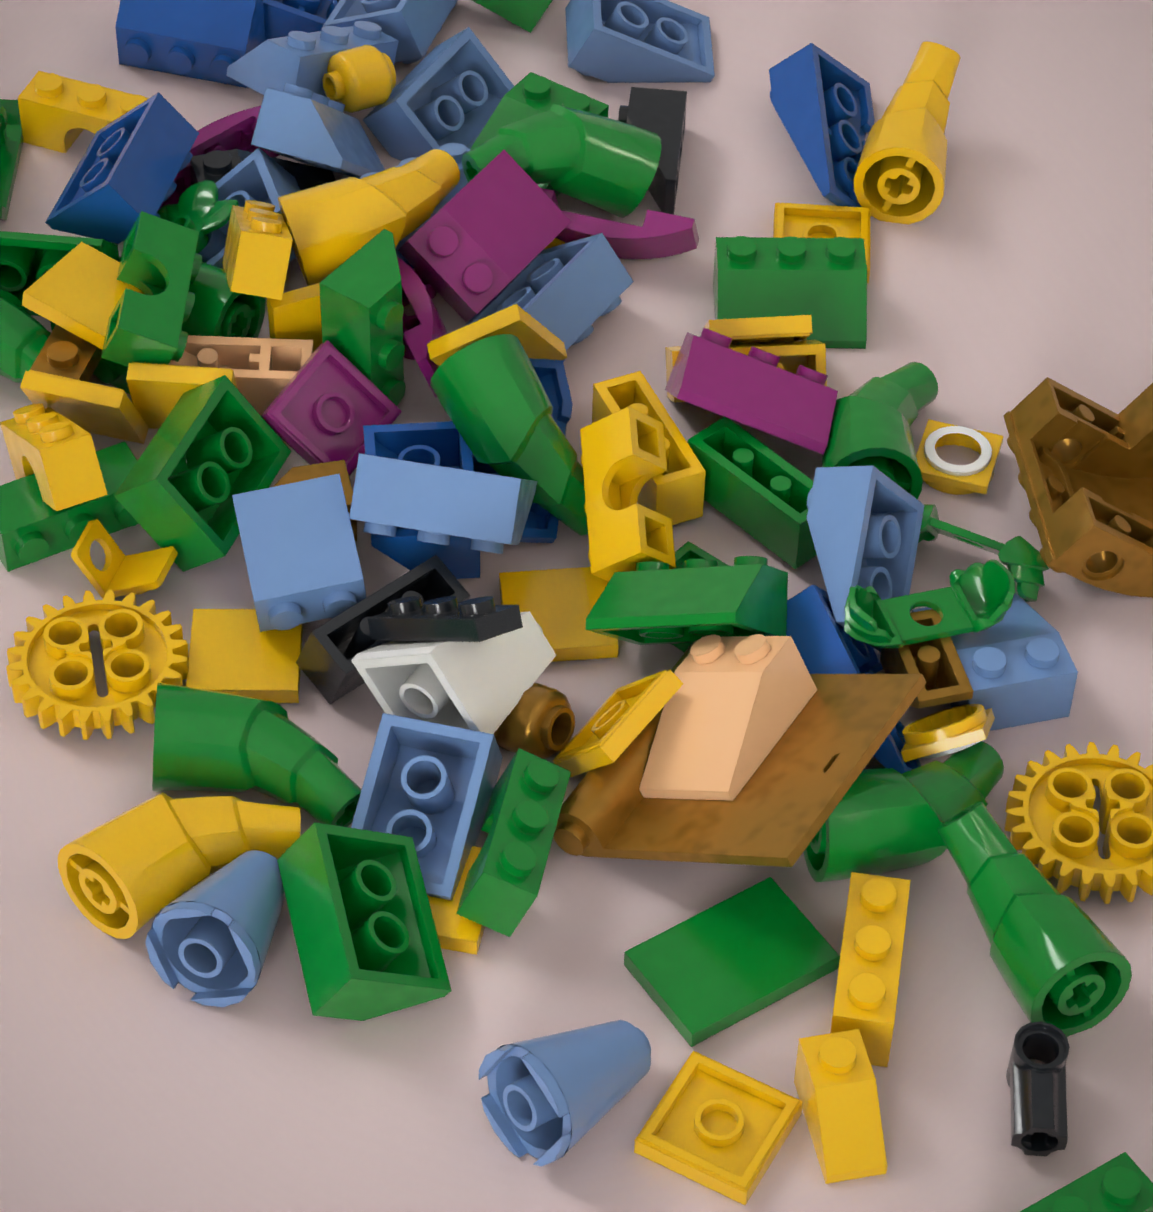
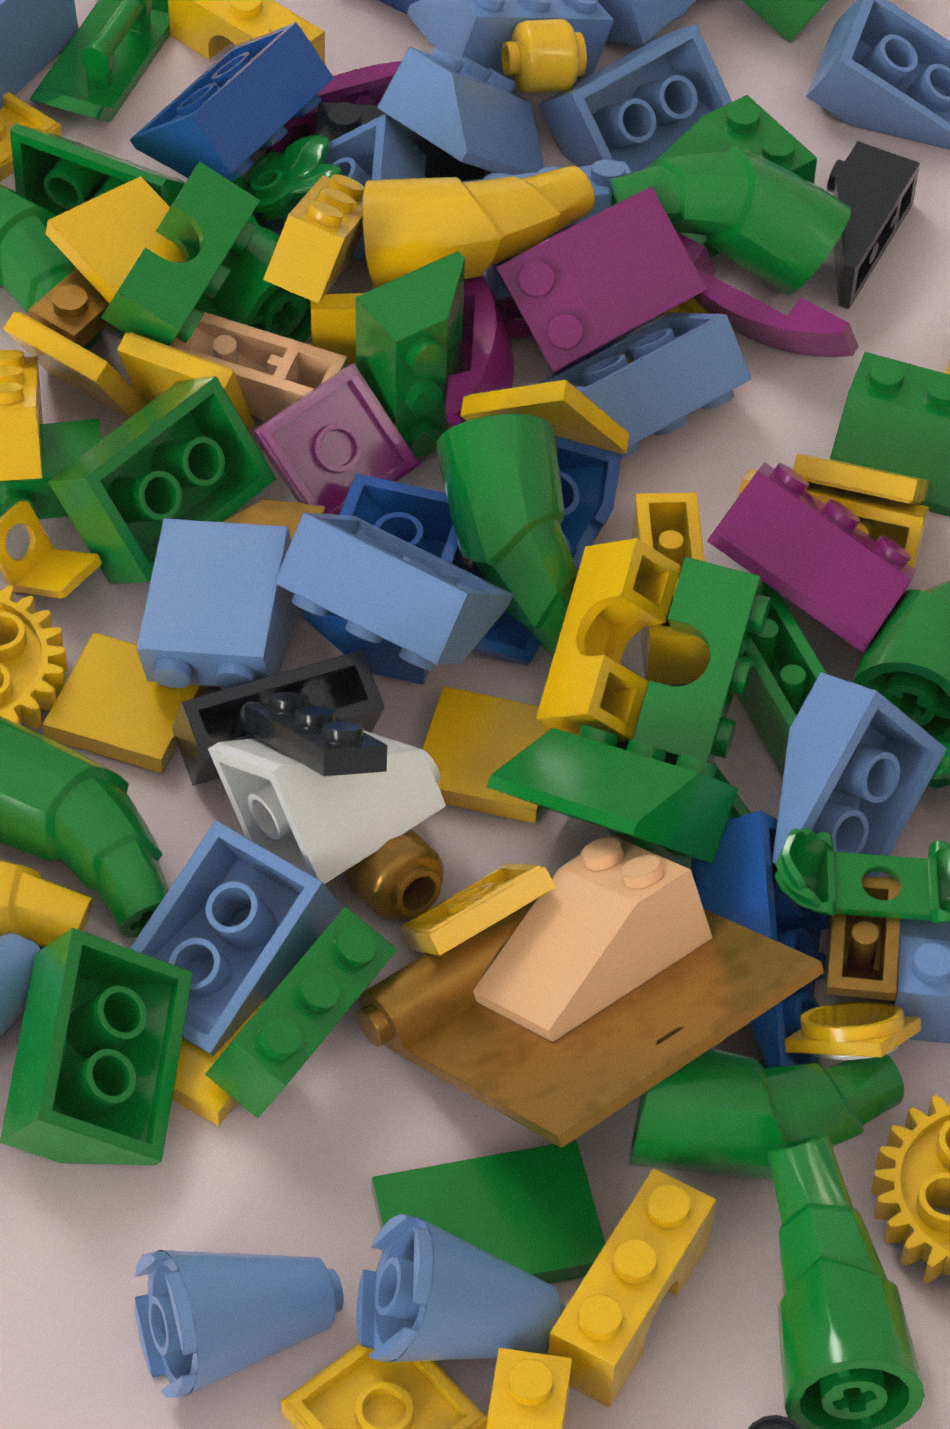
camera: 20 degrees right, 5 degrees up
(712, 447) = (722, 611): none -> green arch
(734, 1016) = (448, 1299): none -> medium blue cone

